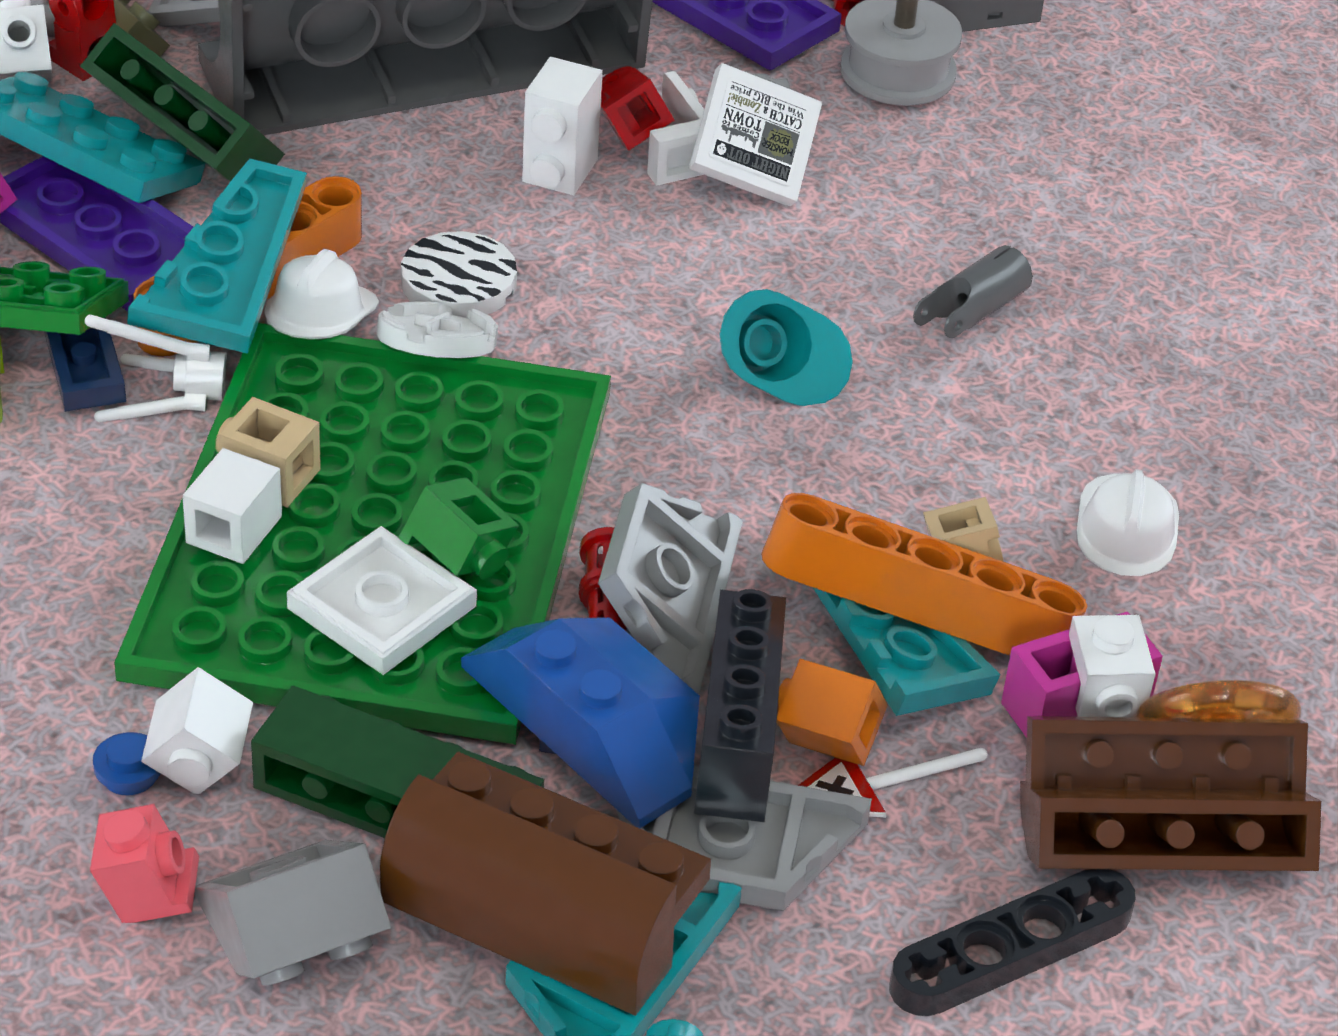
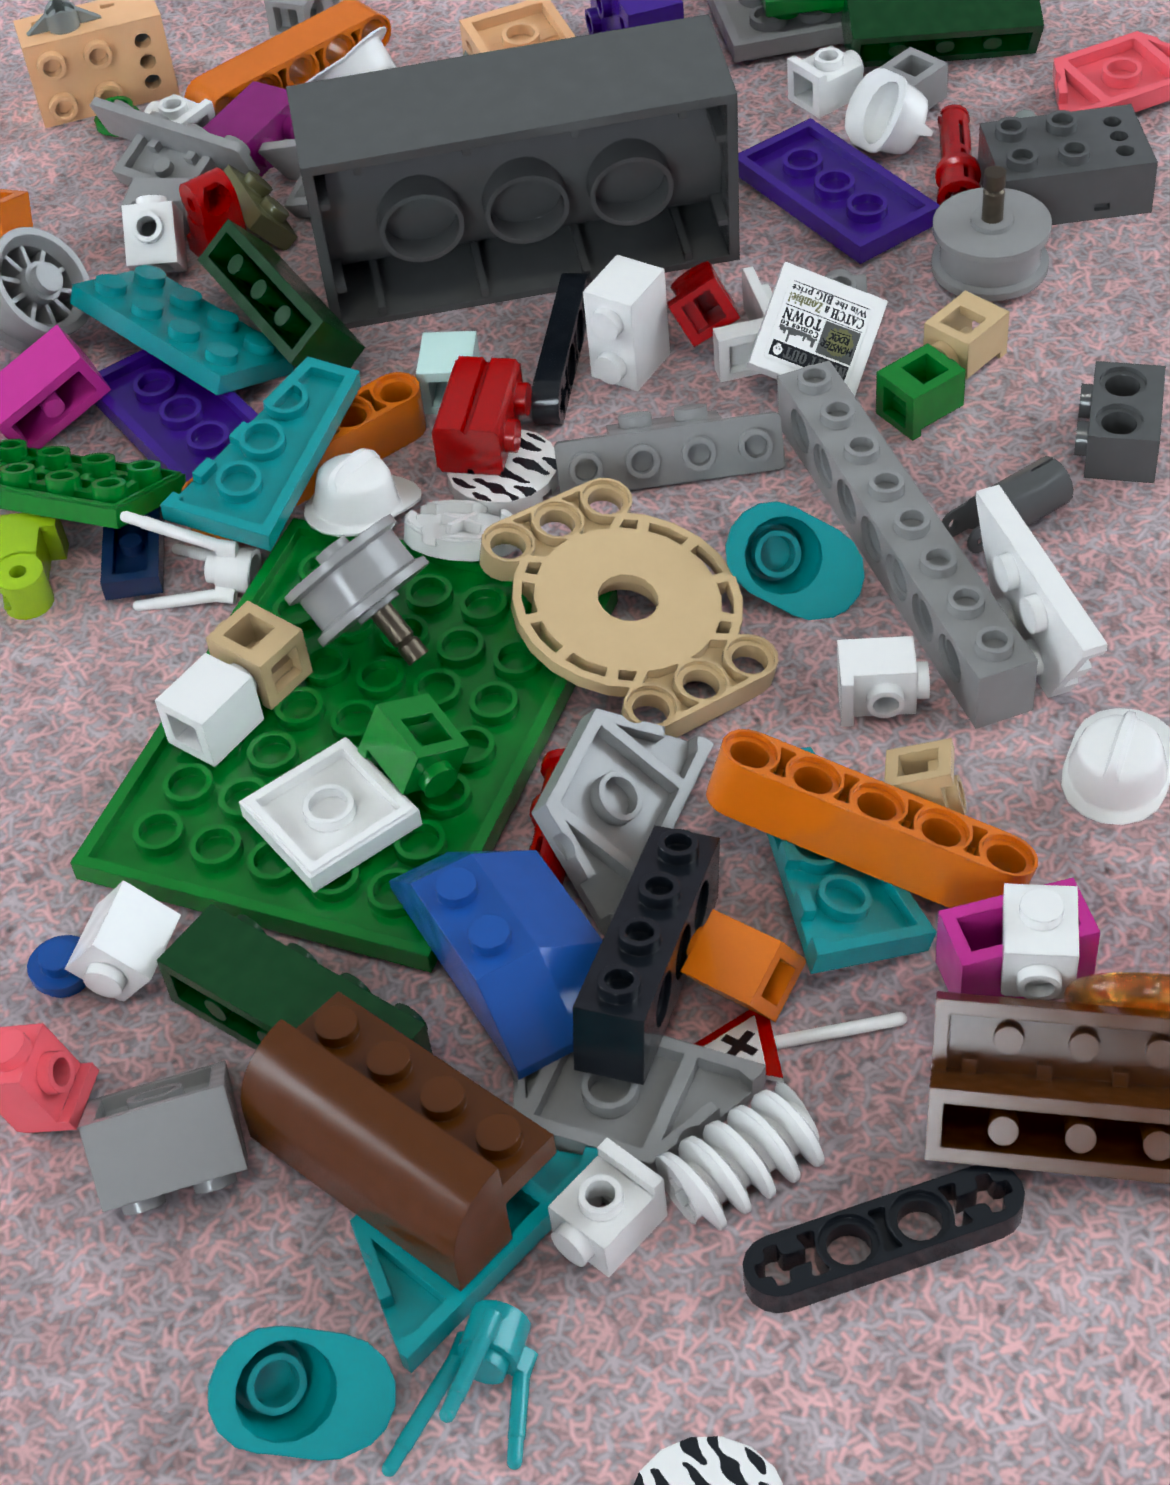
camera: 20 degrees right, 5 degrees up
(369, 377) = (359, 584): none -> light grey wheel
(384, 176) = (437, 360): none -> light aqua brick
(432, 216) = (481, 415): none -> red brick
(491, 154) = (560, 351): none -> black beam
(627, 250) = (673, 449): none -> light grey bracket
(670, 442) = (639, 659): none -> tan piece
(753, 935) = (611, 1232): none -> white brick
(863, 188) = (919, 390): none -> green brick
(869, 881) = (741, 1156): none -> white piece
(888, 328) = (907, 547): none -> light grey brick
(890, 151) = (953, 335): none -> tan brick
(890, 452) = (879, 678): none -> white brick
(1029, 374) = (1035, 596): none -> white wing
(1063, 214) = (1124, 422): none -> dark grey brick

